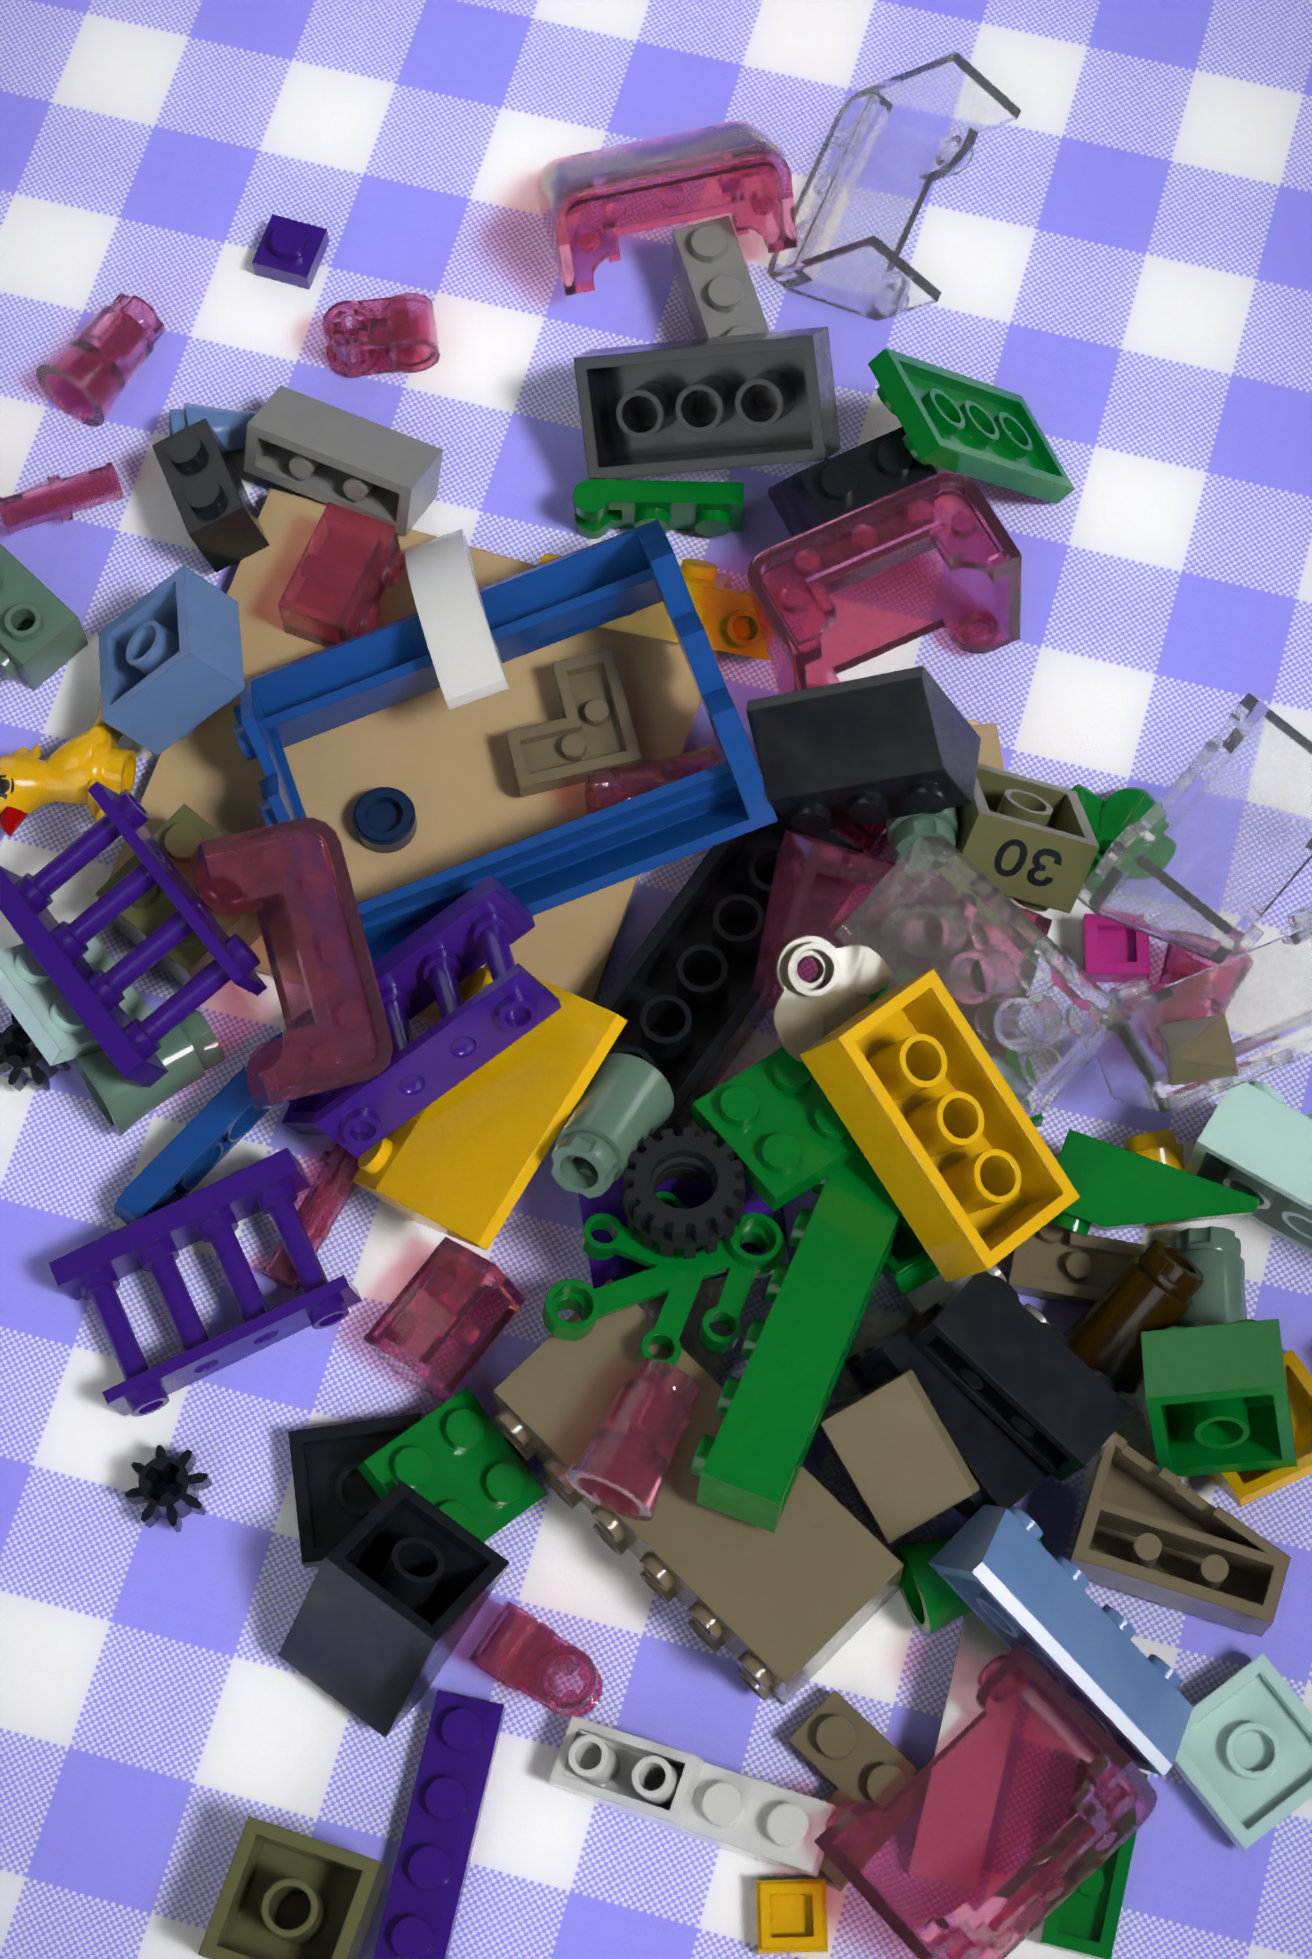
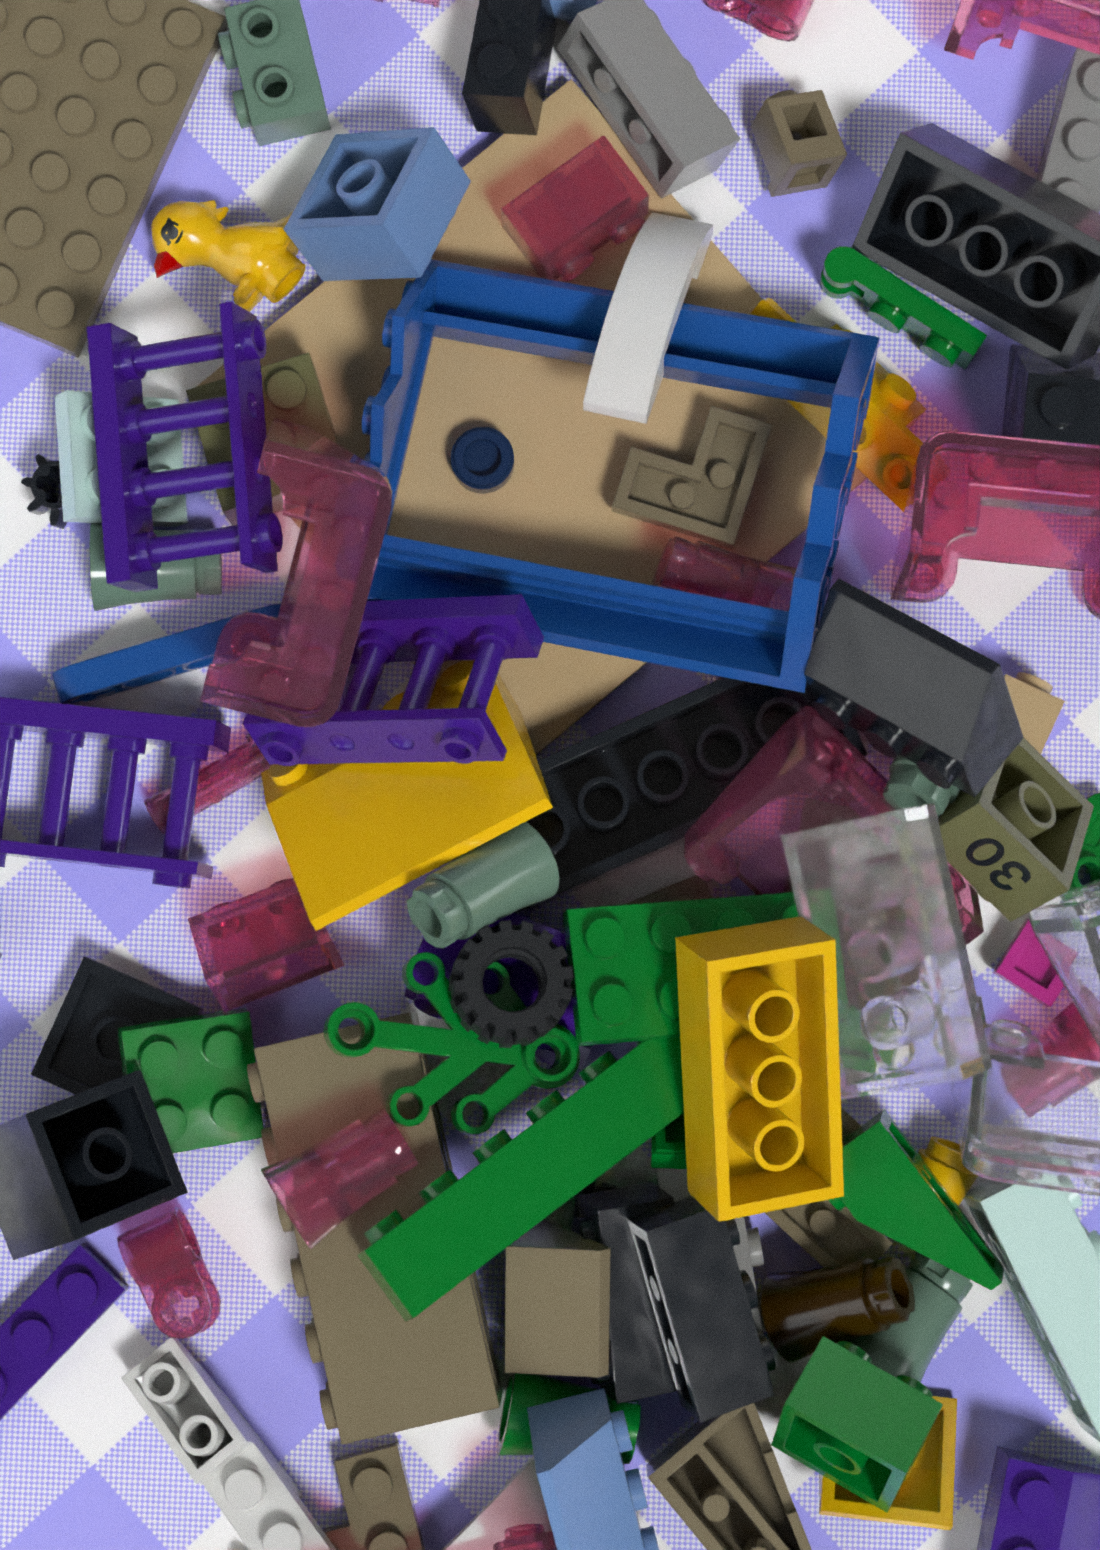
camera: 35 degrees right, 15 degrees up
(492, 430) = (798, 141): none -> dark tan brick
(836, 993) = (741, 892): dark tan plate -> none
(1197, 1049) = (1026, 1138): dark tan slope -> none

